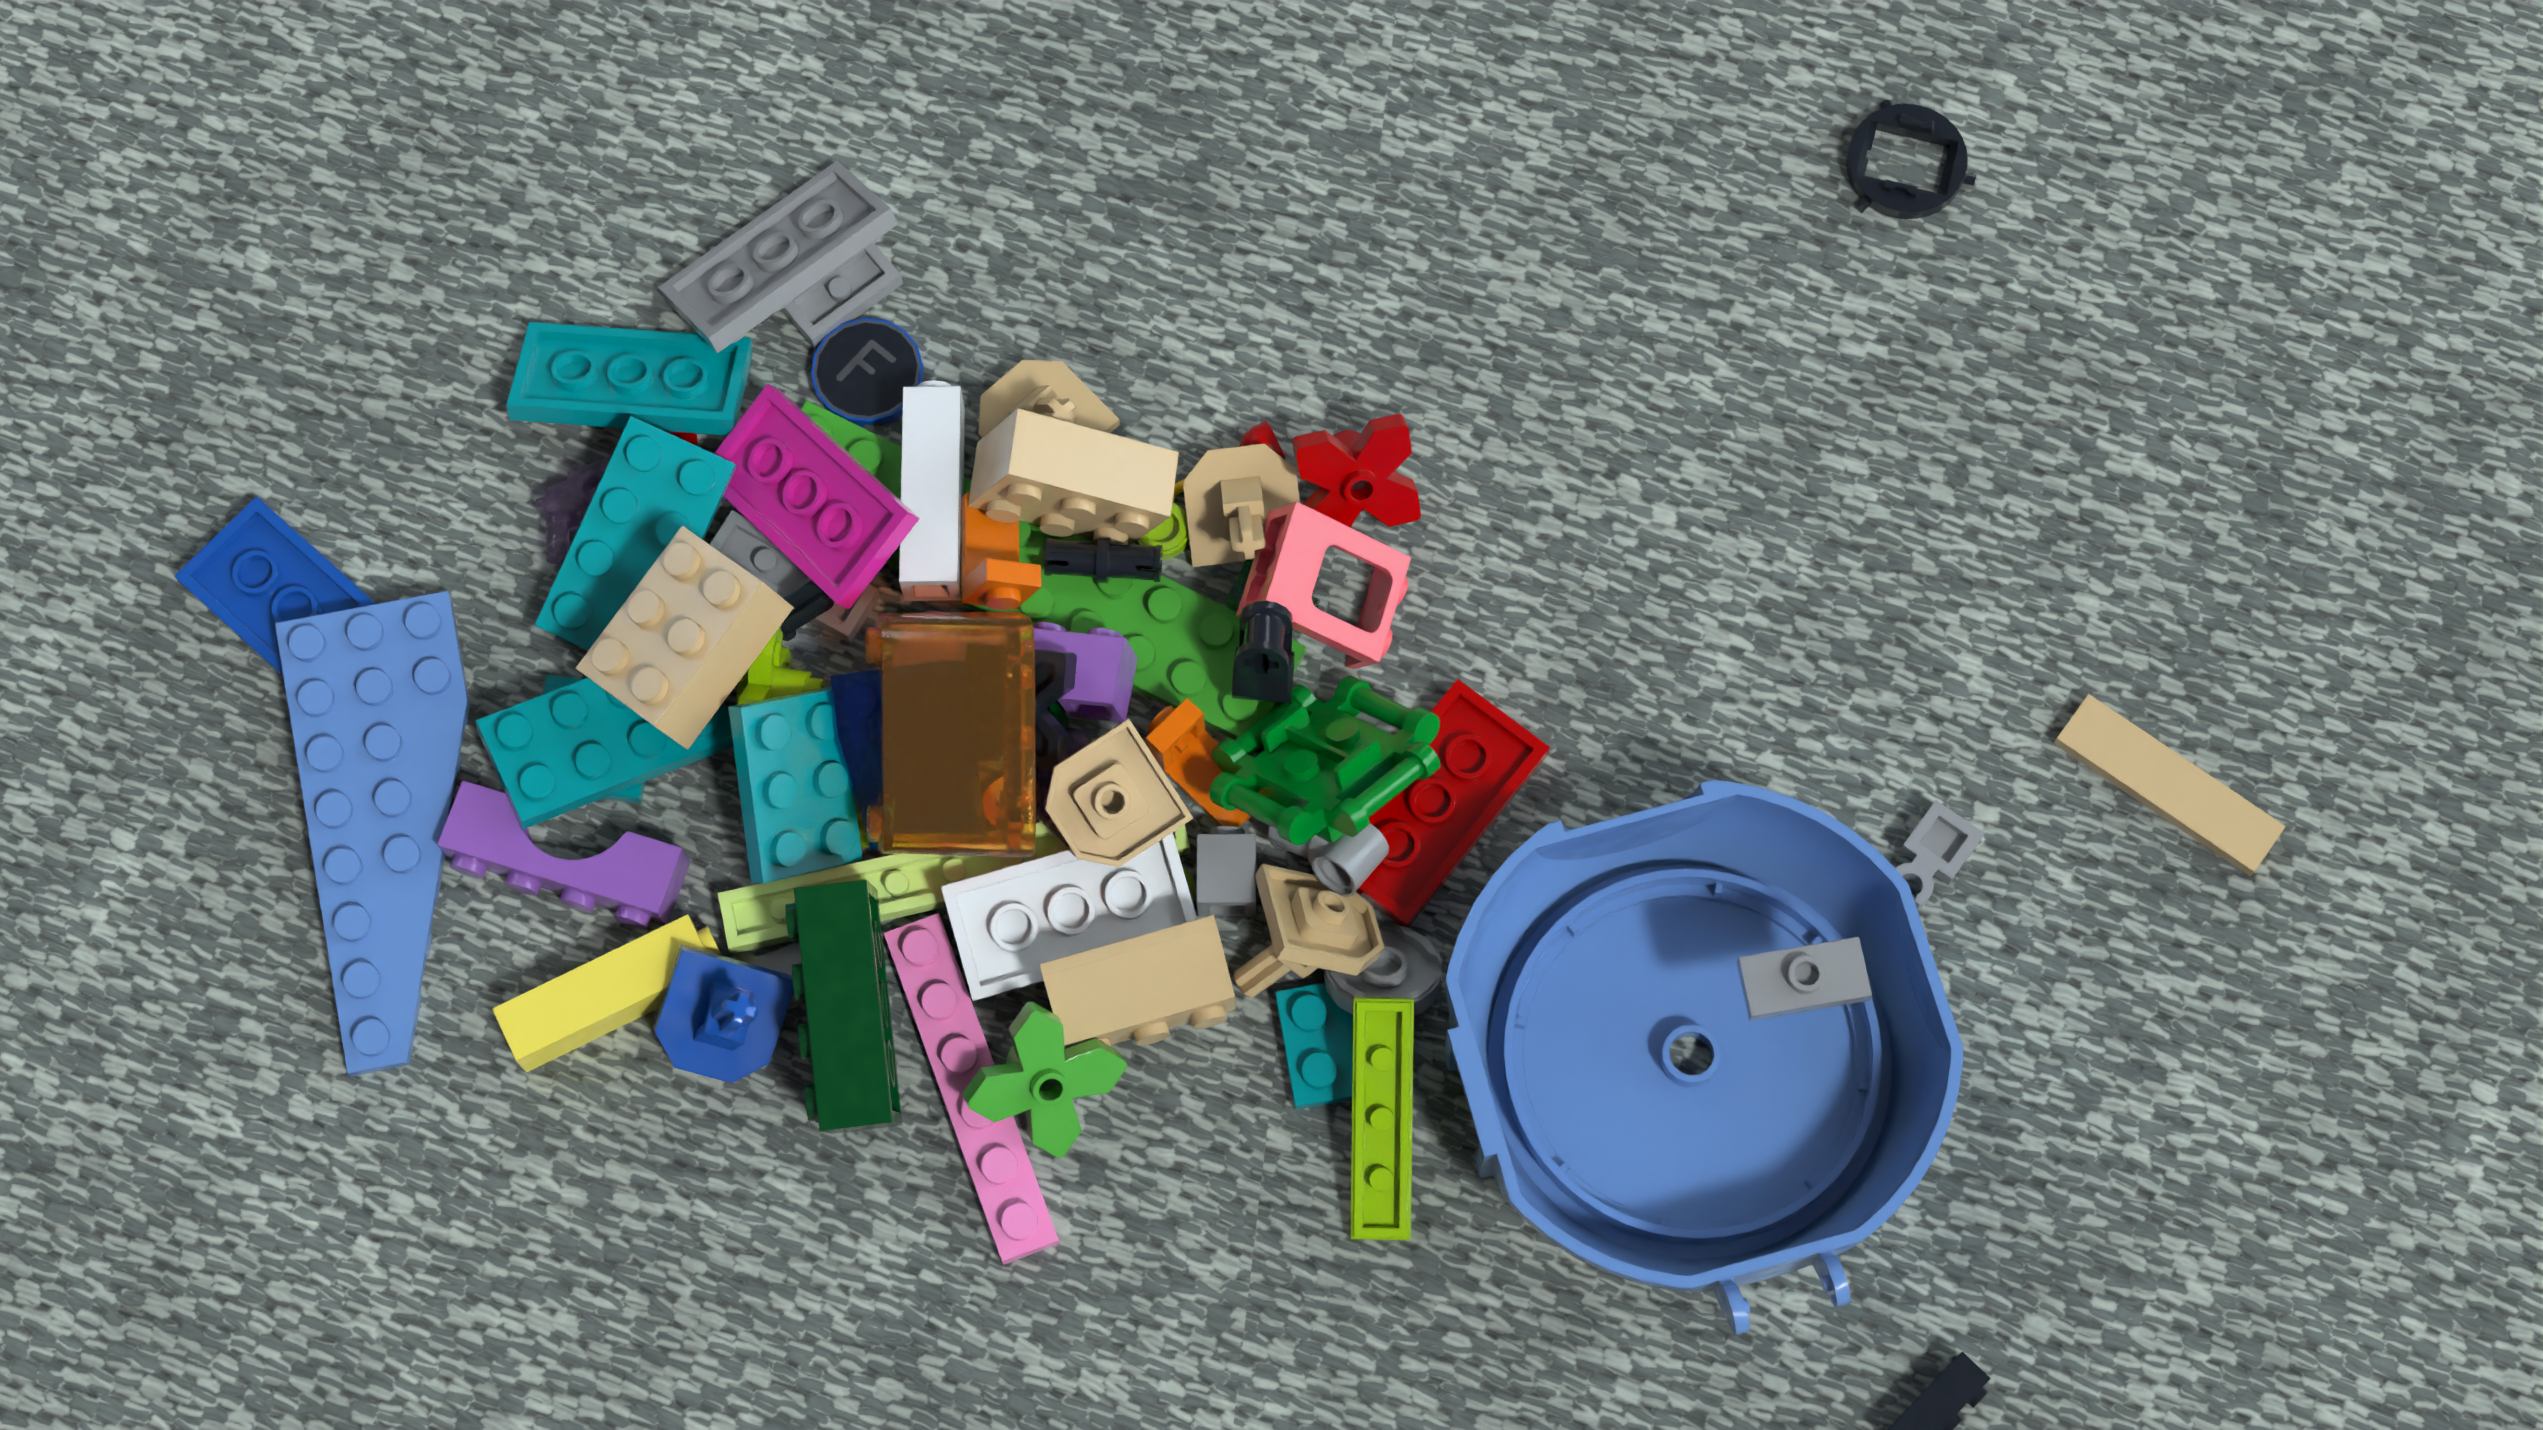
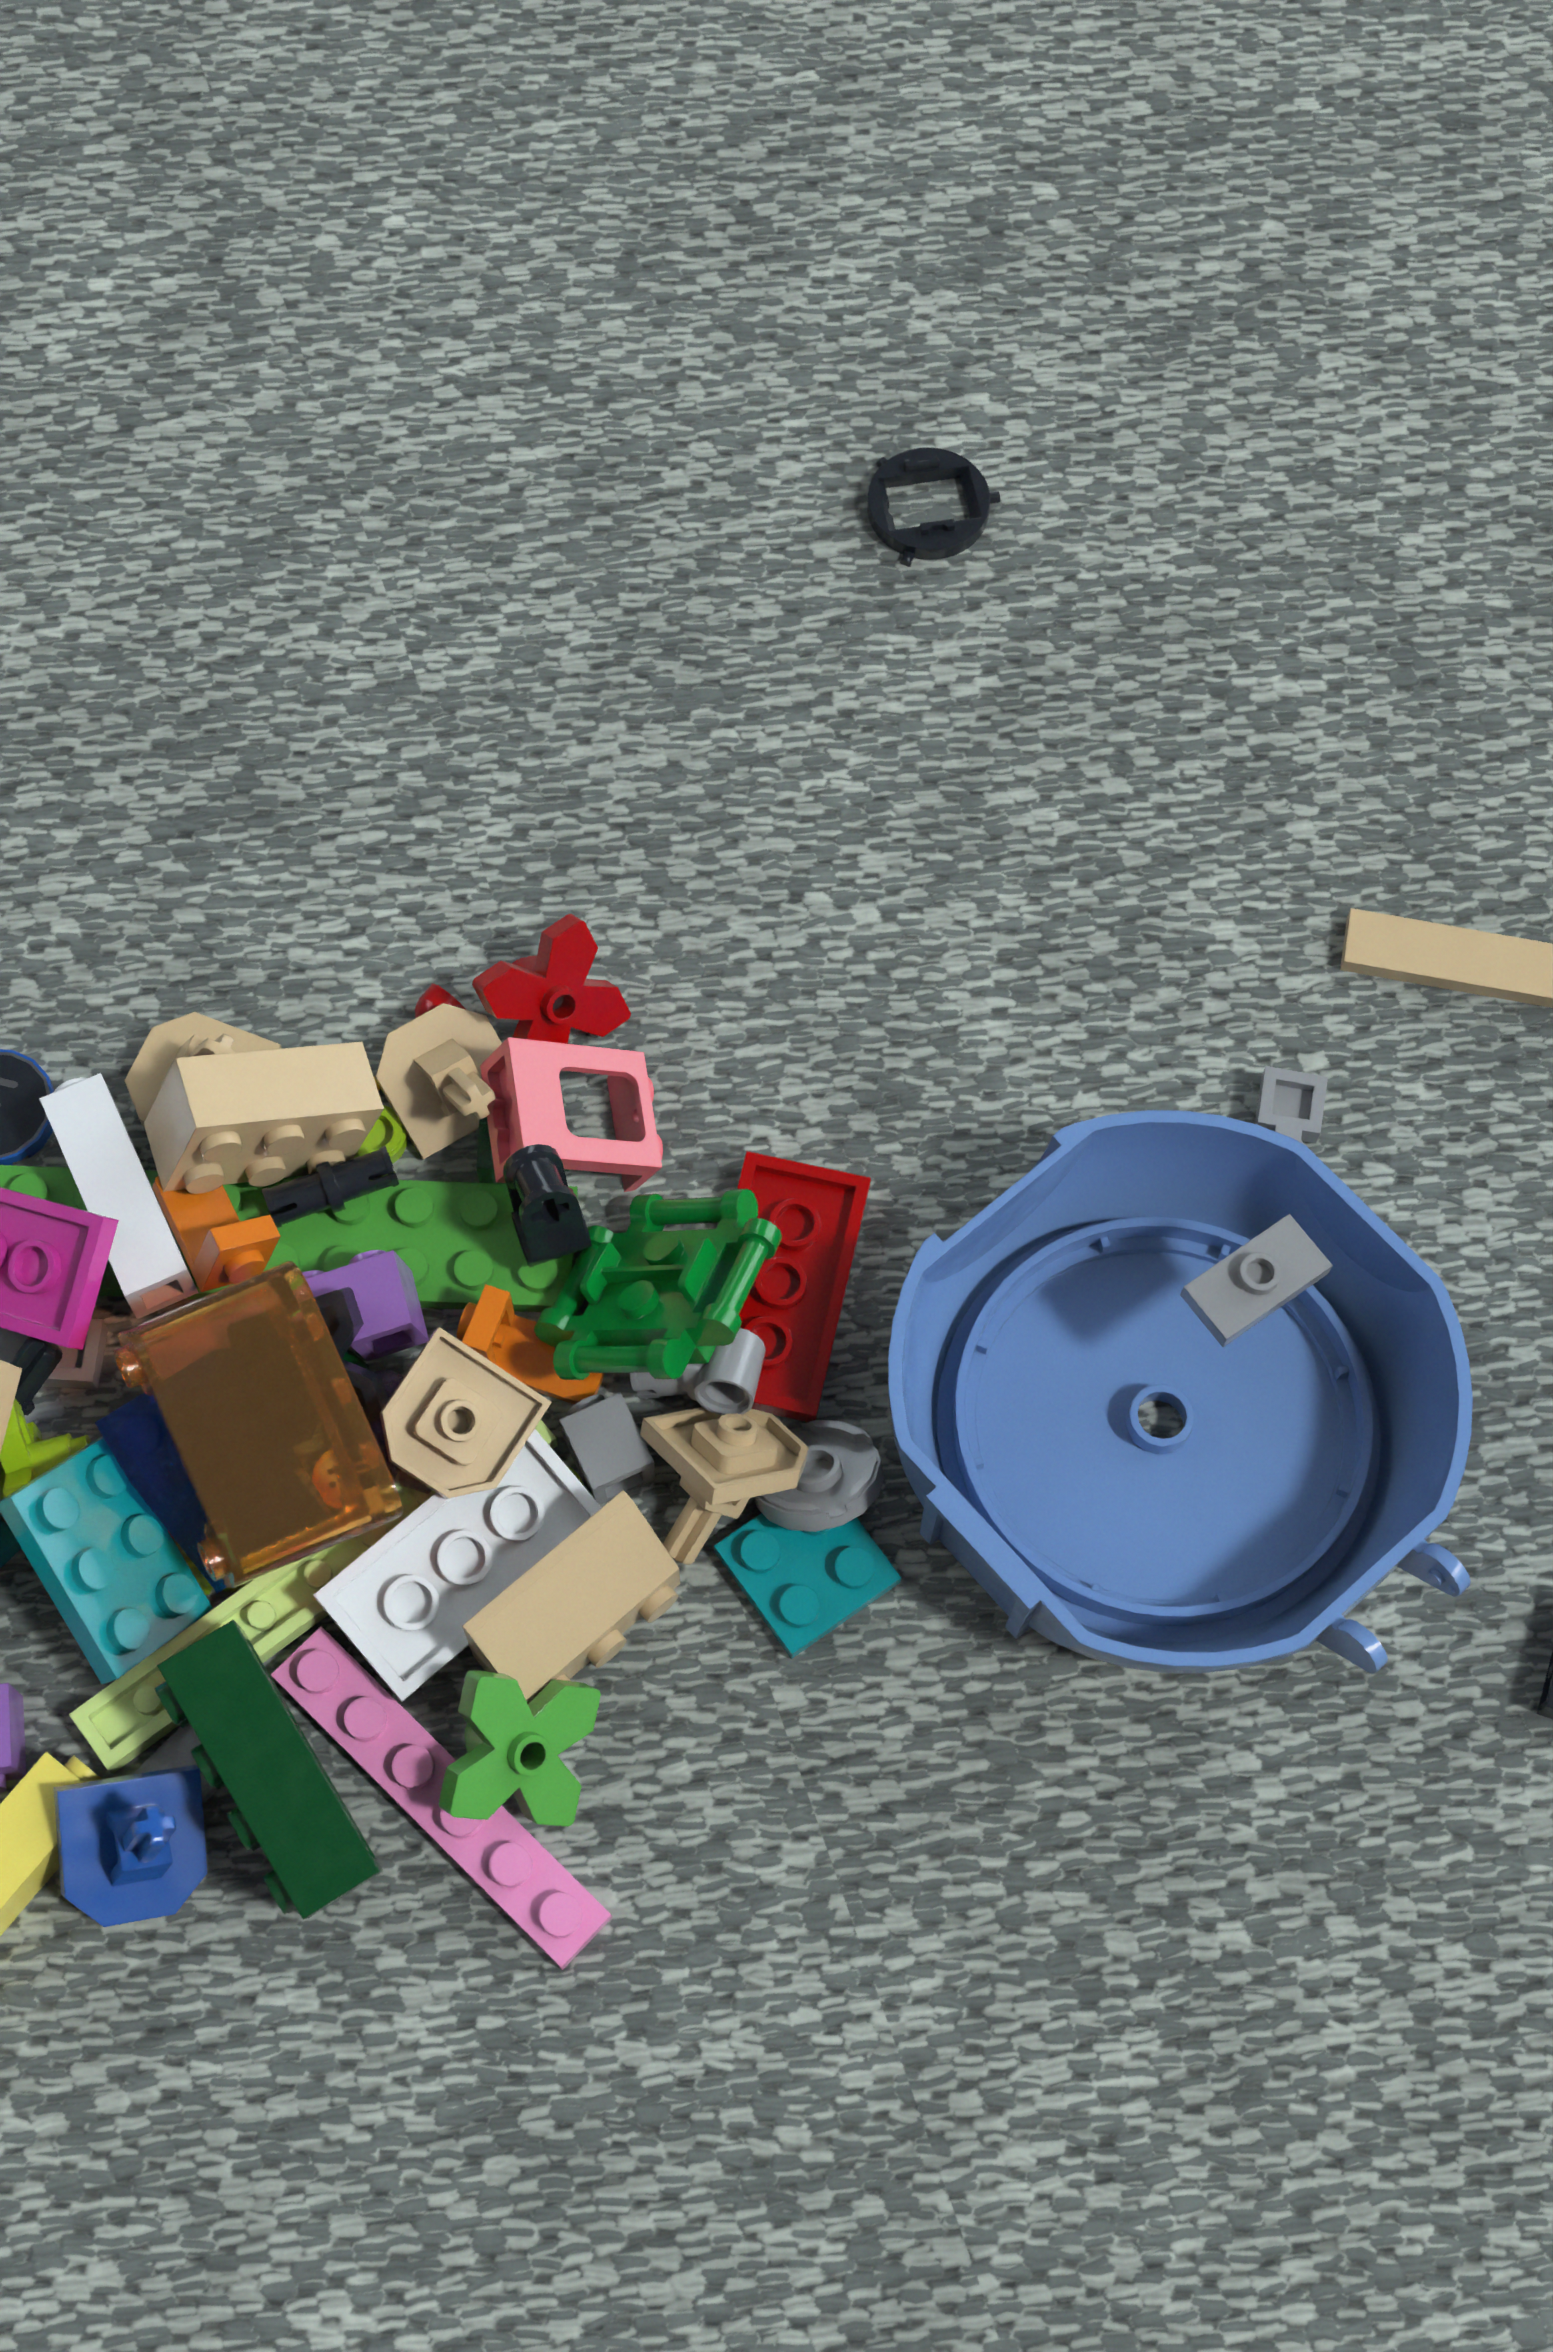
camera: 30 degrees left, 5 degrees down
(1382, 1118) = (890, 1624): lime tile -> none

